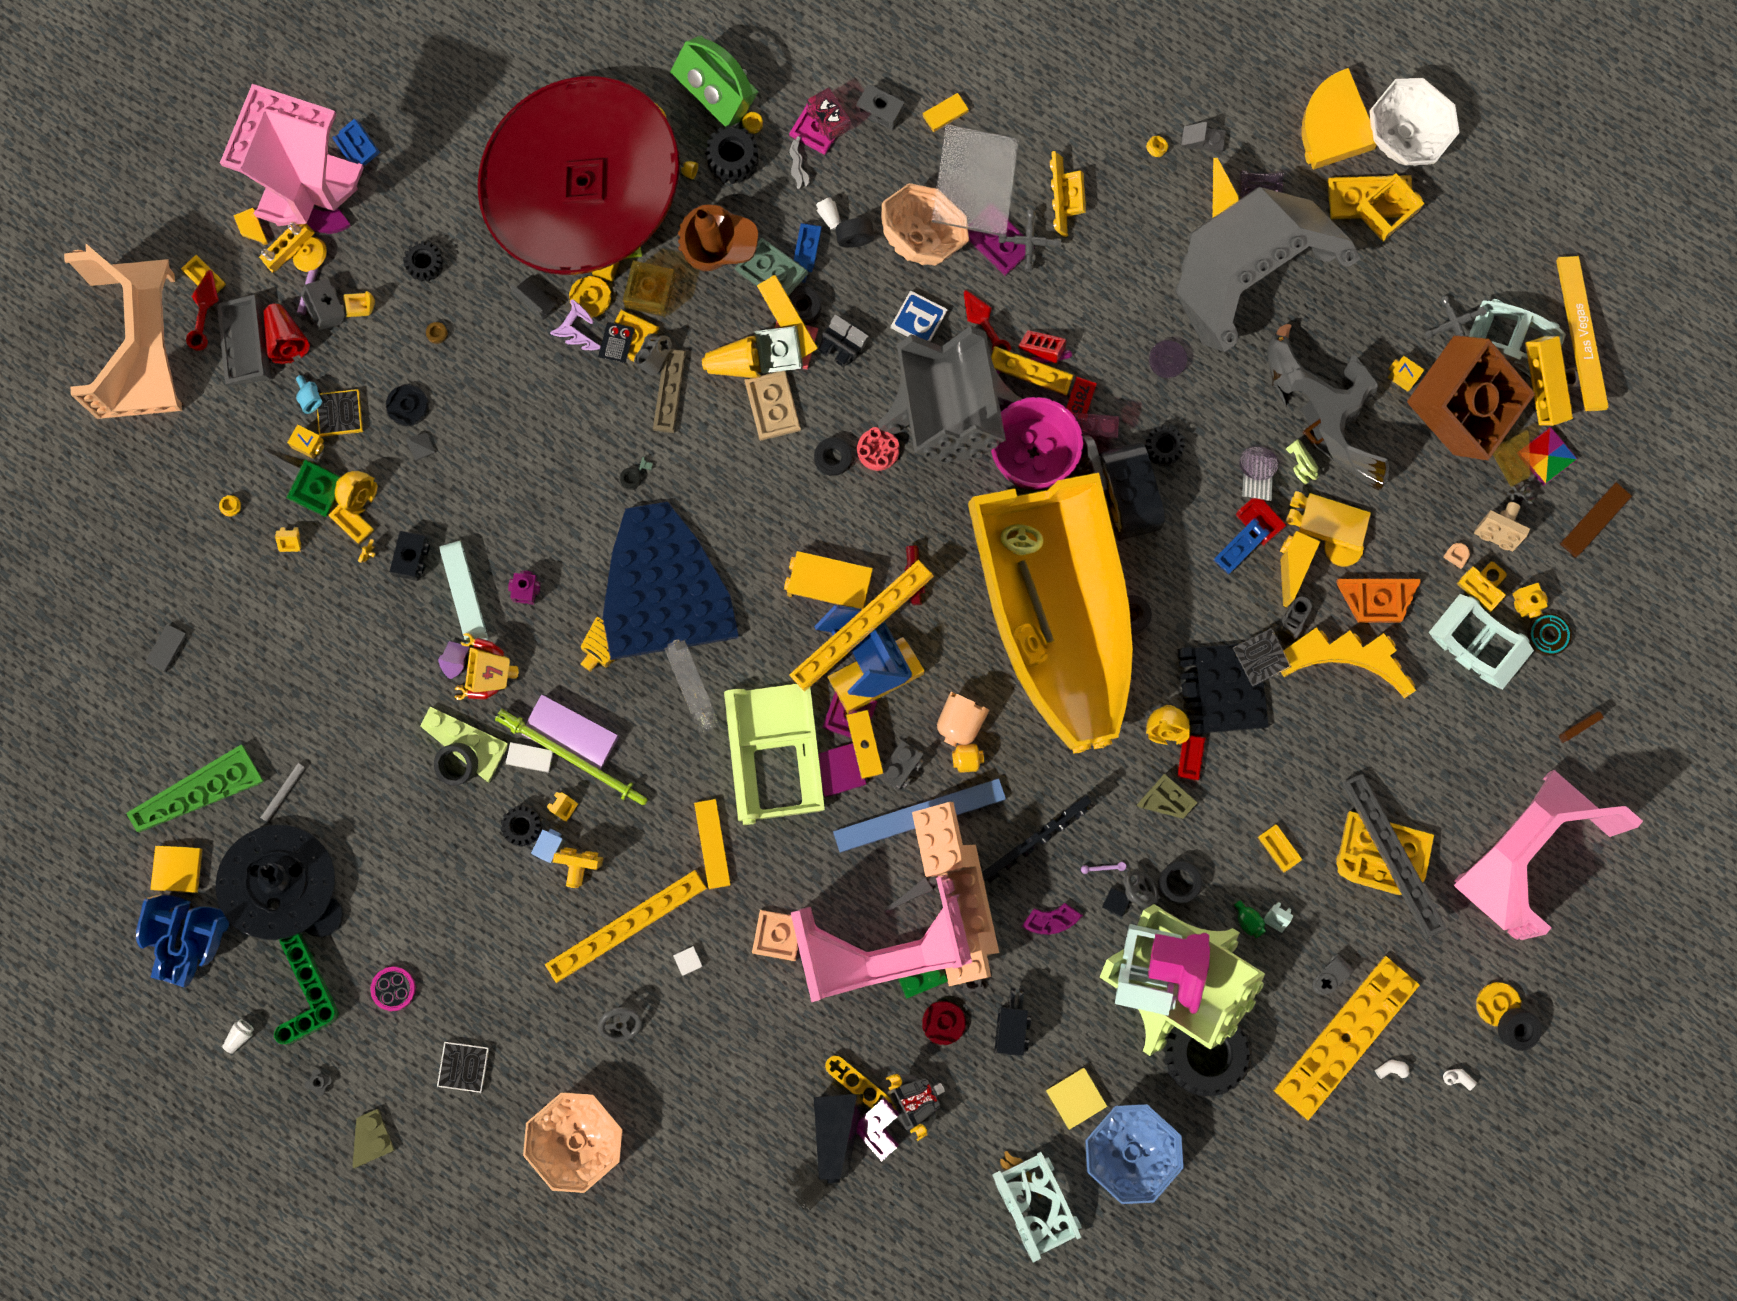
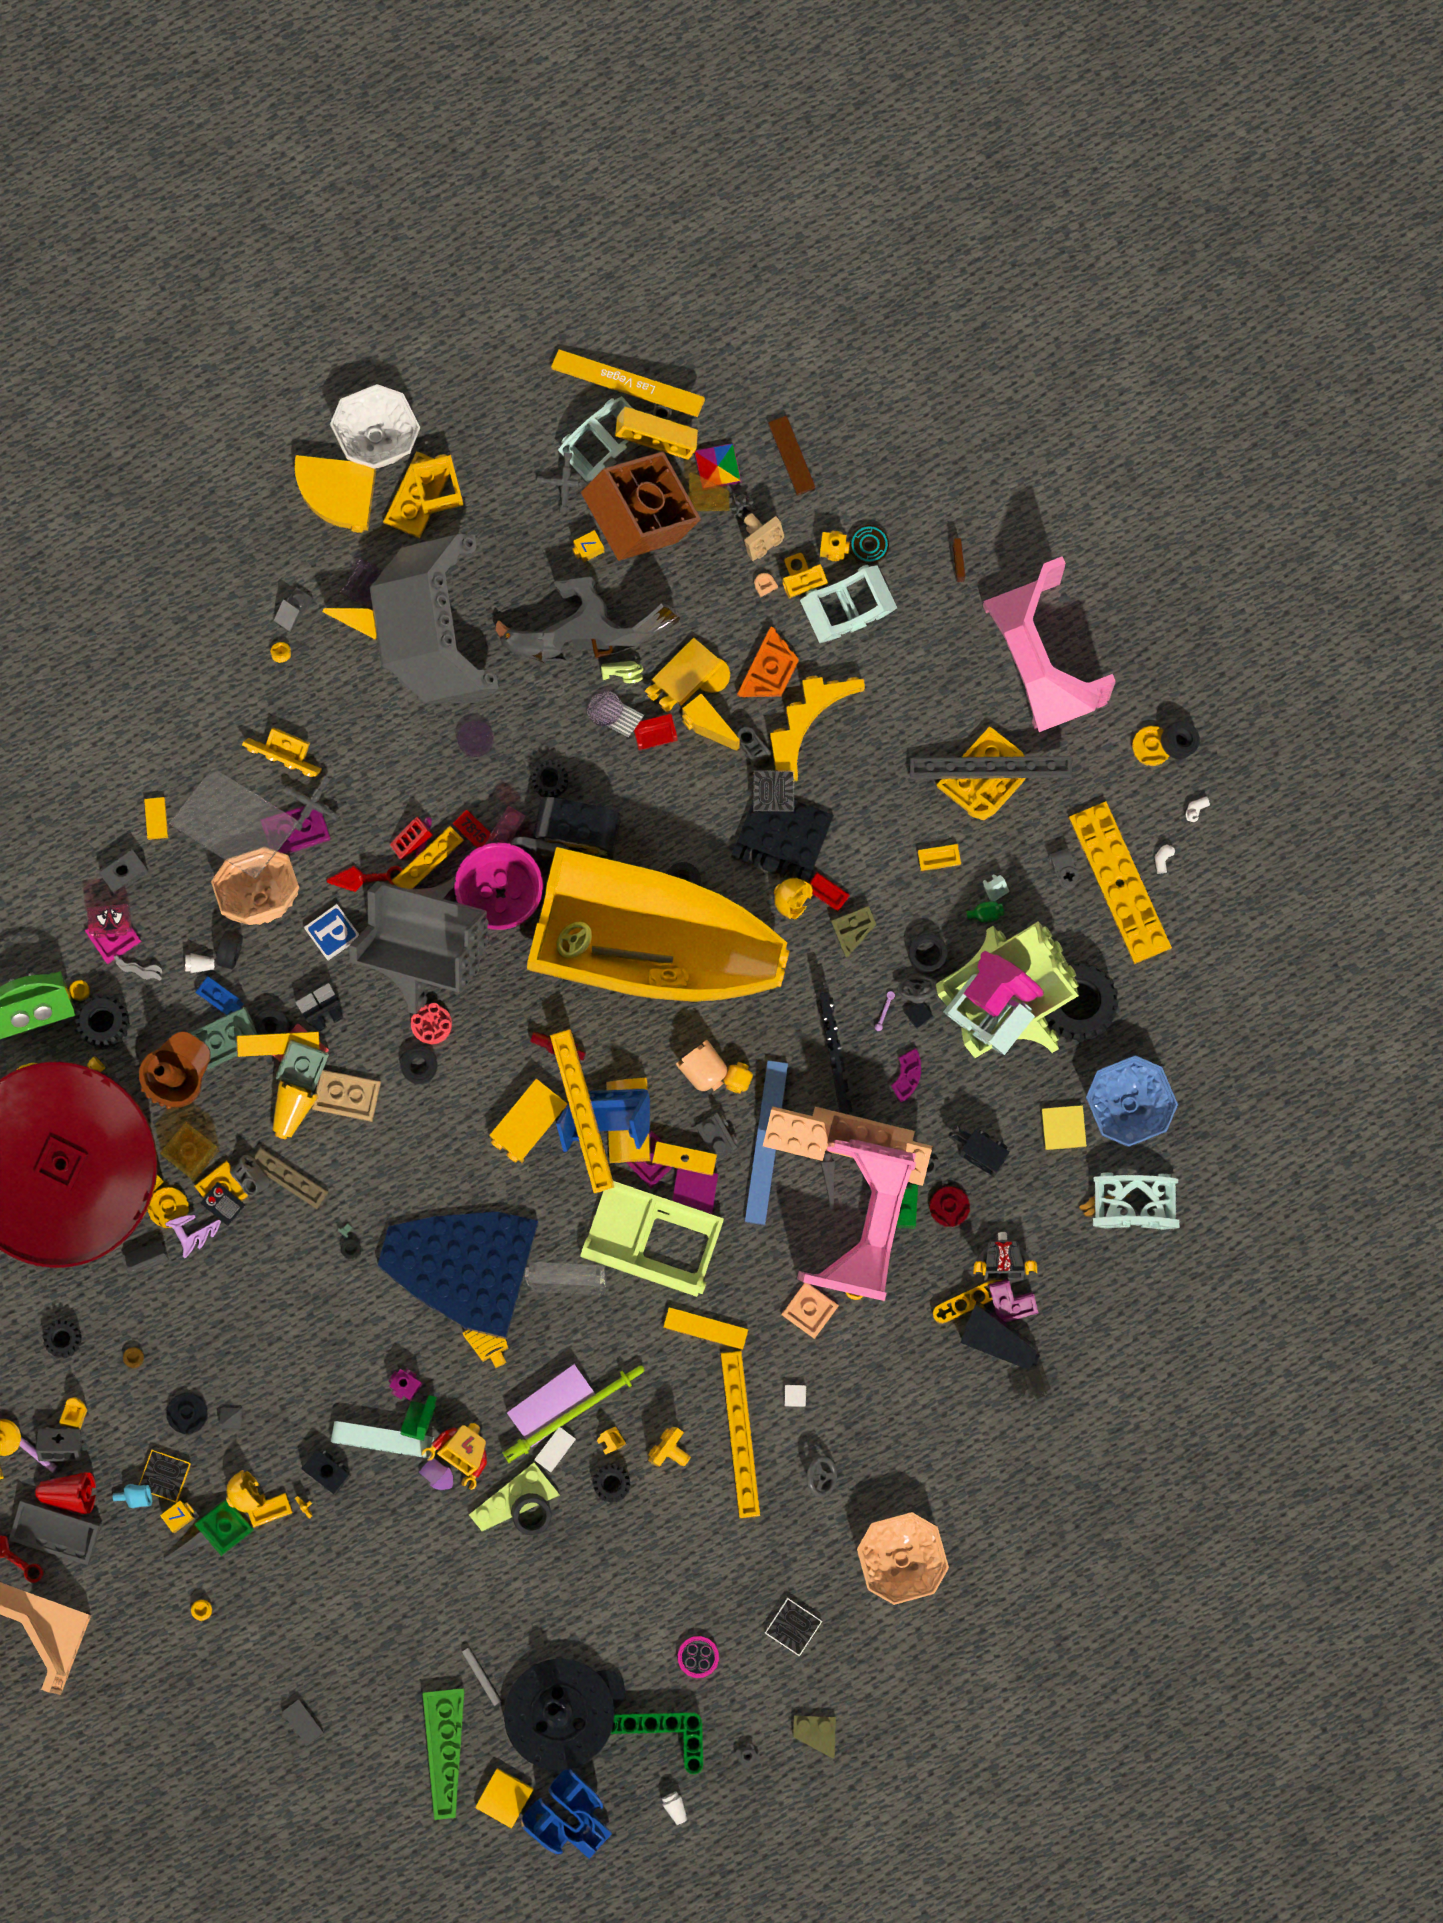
camera: 60 degrees left, 0 degrees up
(288, 540) = (259, 1572): yellow tile -> none
(497, 616) = (418, 1419): none -> green panel
(547, 845) = (640, 1467): light blue brick -> none
(1241, 546) = (669, 760): blue plate -> none

